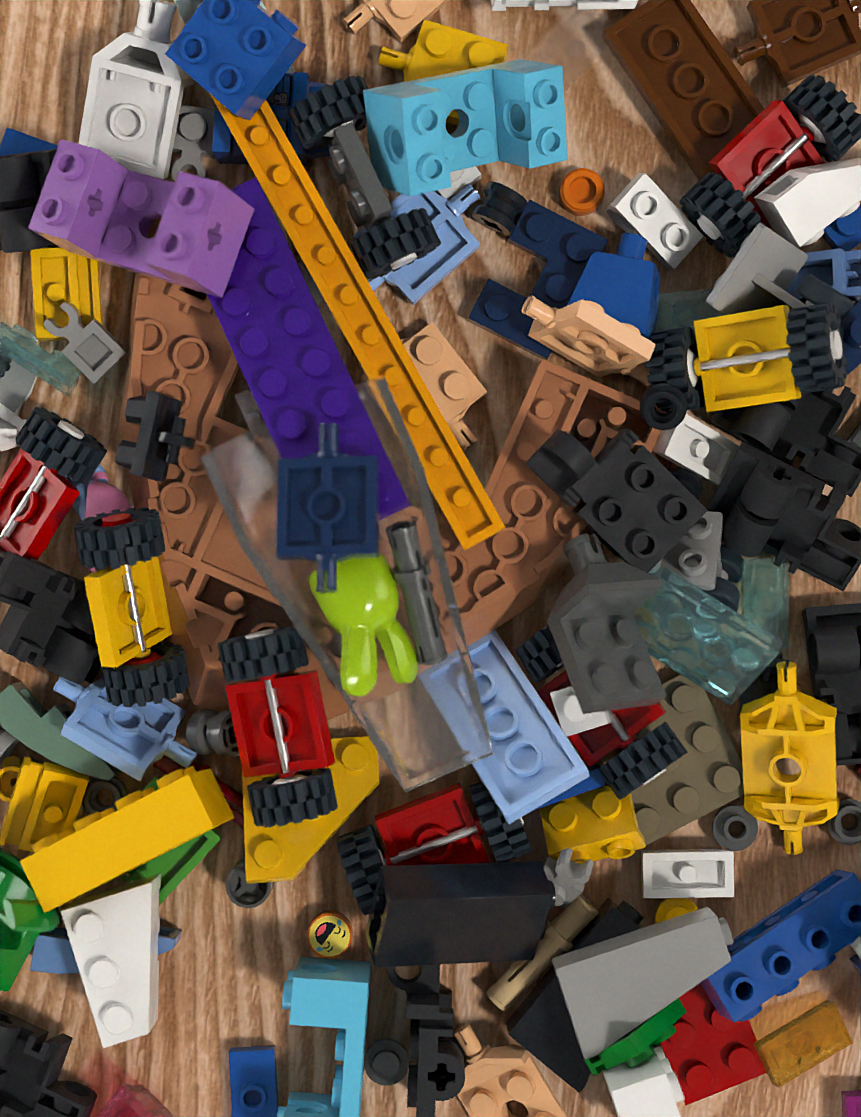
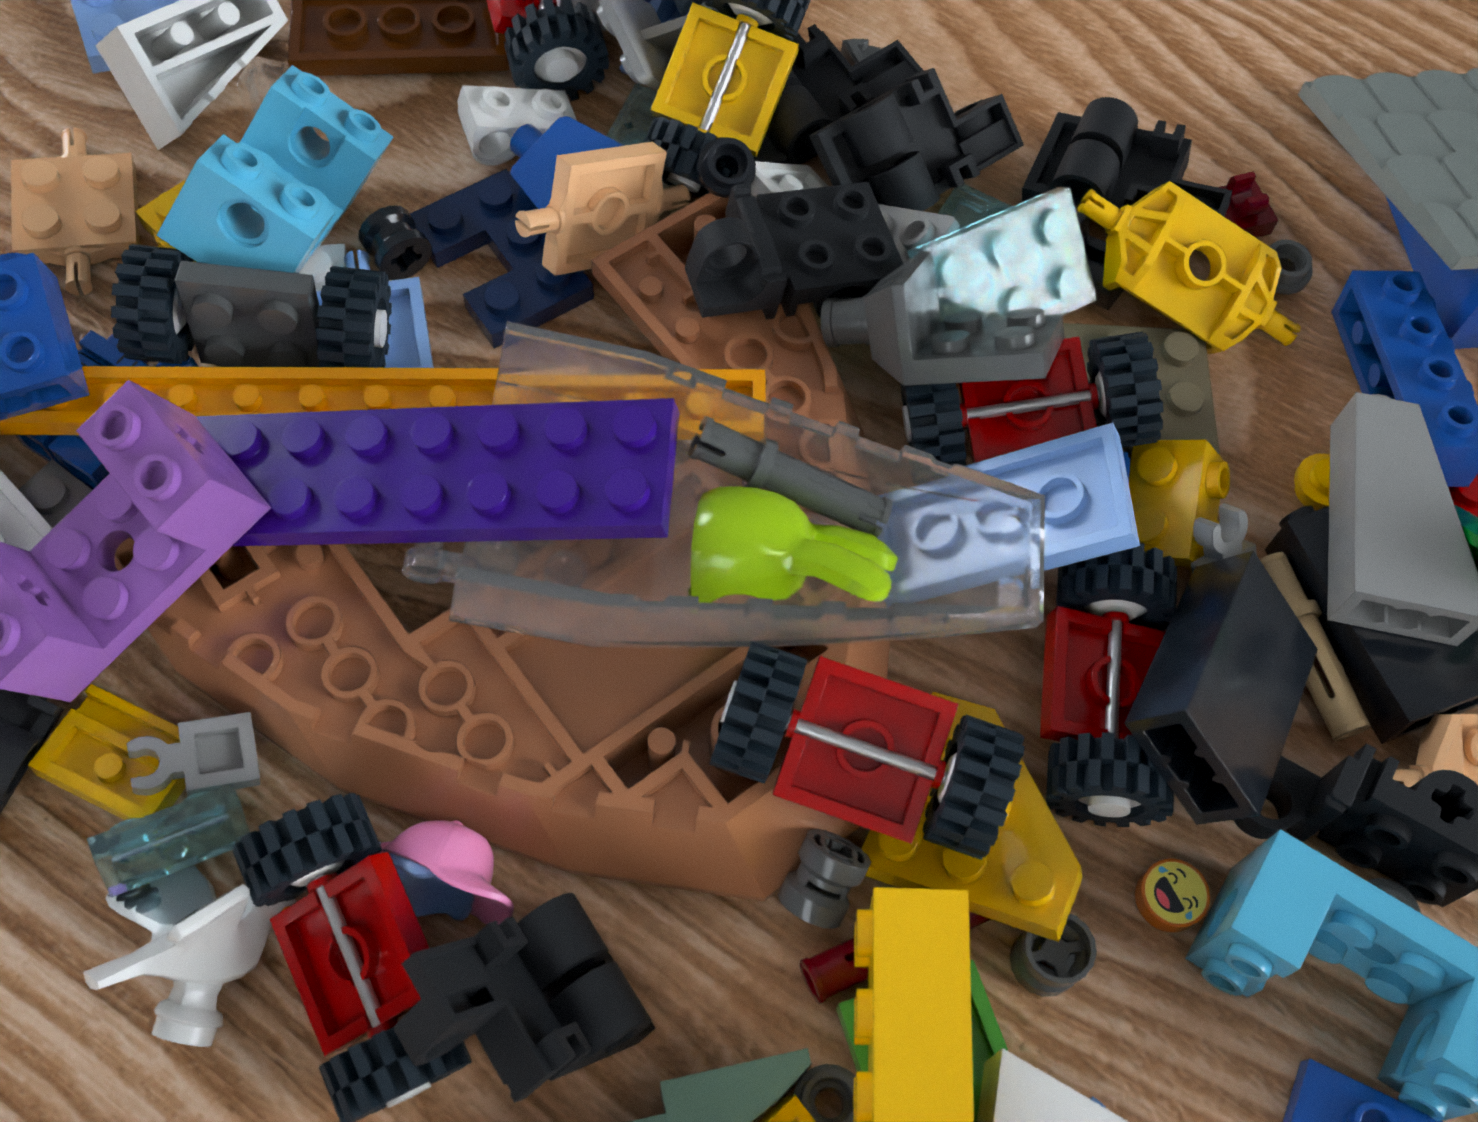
camera: 65 degrees left, 25 degrees down
(122, 735) = (741, 998): light blue plate -> none
(130, 606) = (554, 864): plate -> none
(158, 436) = (360, 689): black hips -> none
(327, 508) = (625, 473): dark blue plate -> none
(571, 716) = (1023, 418): white plate -> none
(581, 192) = (436, 172): orange tile -> none
(687, 873) = (1275, 444): white plate -> none
(722, 821) = (1232, 384): dark grey plate -> none

